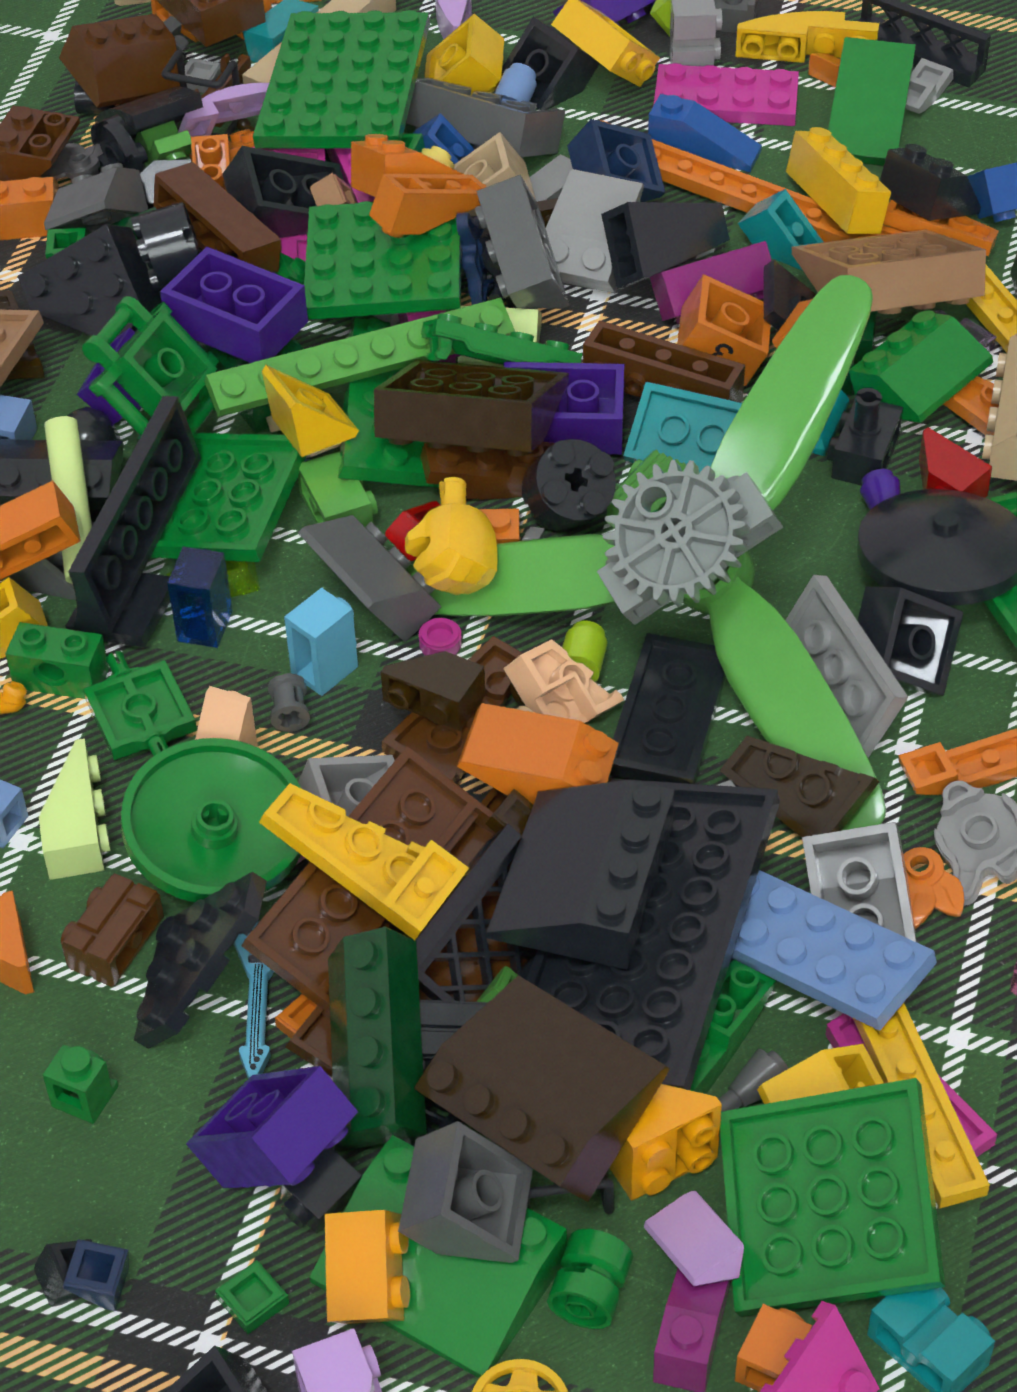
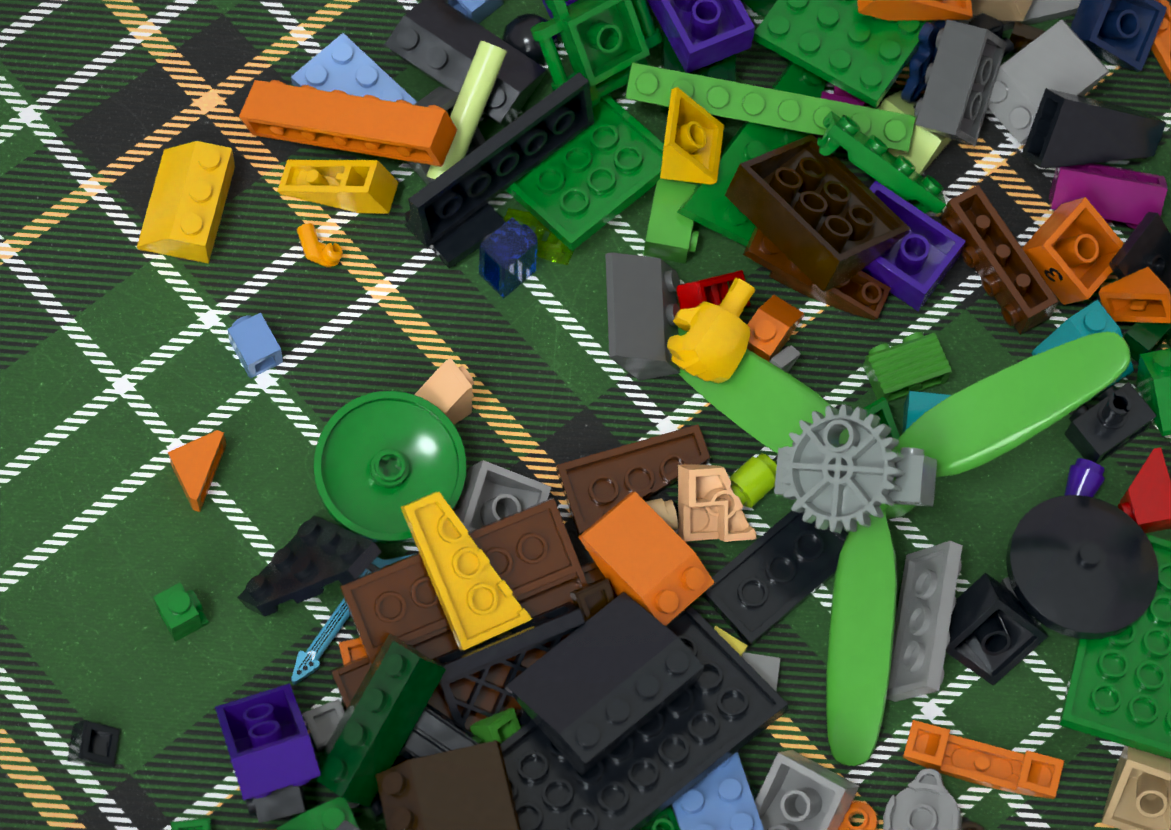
camera: 25 degrees right, 20 degrees up
(56, 659) = (377, 245): green brick -> none
(70, 818) = (303, 391): yellowish green slope -> none
(97, 1273) = (104, 761): dark blue slope -> none
(111, 929) = (275, 501): reddish brown brick -> none
(139, 708) = (410, 323): green plate -> none
(288, 702) = (516, 386): dark grey bush -> none
(321, 640) = (568, 354): medium azure brick -> none
(422, 889) = (482, 627): yellow plate -> none
(435, 687) = (620, 449): dark brown slope -> none
(440, 636) = (664, 396): dark pink tile -> none
(567, 466) = (843, 348): black brick -> none
(679, 425) = (976, 329): teal plate -> none
(812, 793) = (818, 701): dark brown wing -> none

